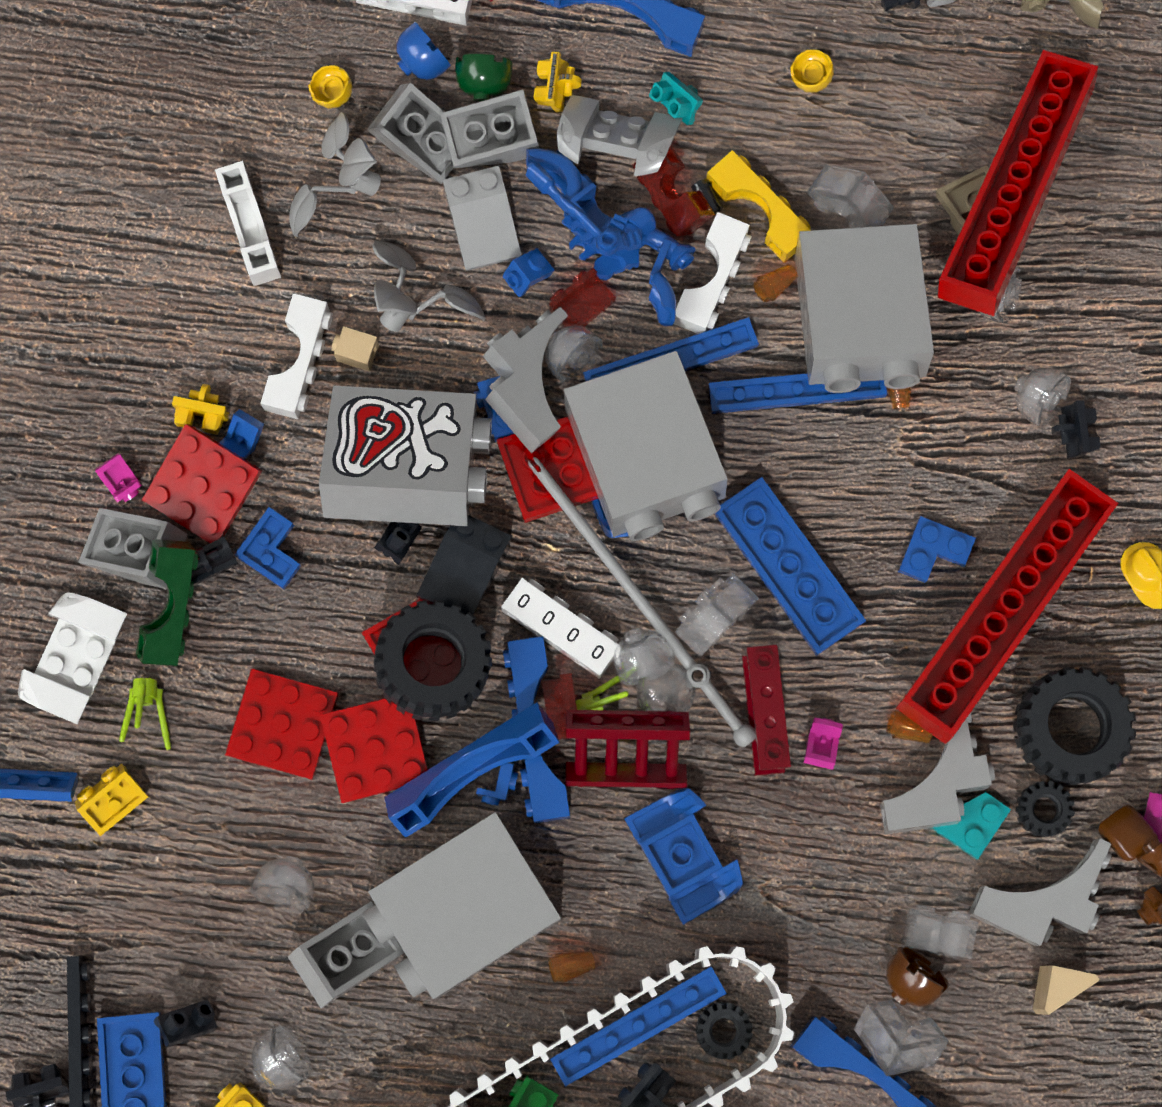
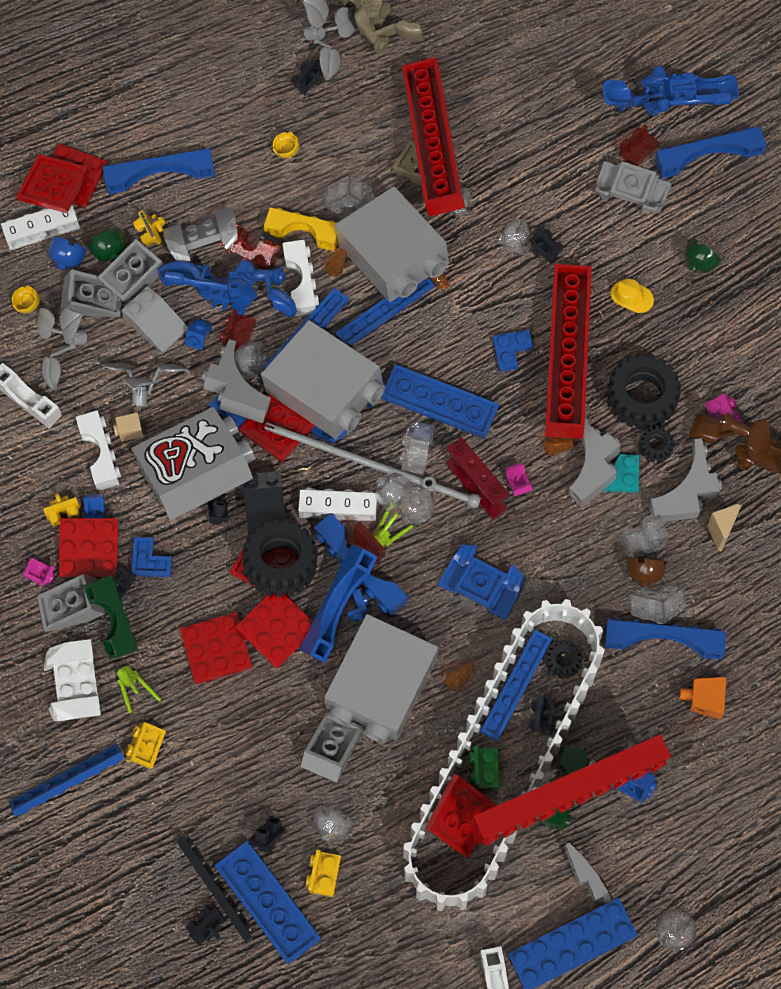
camera: 30 degrees left, 10 degrees down
(284, 883) = (274, 729): clear cylinder -> none
(627, 725) = (403, 530): dark red fence -> none
(678, 98) = (222, 198): teal hips -> none

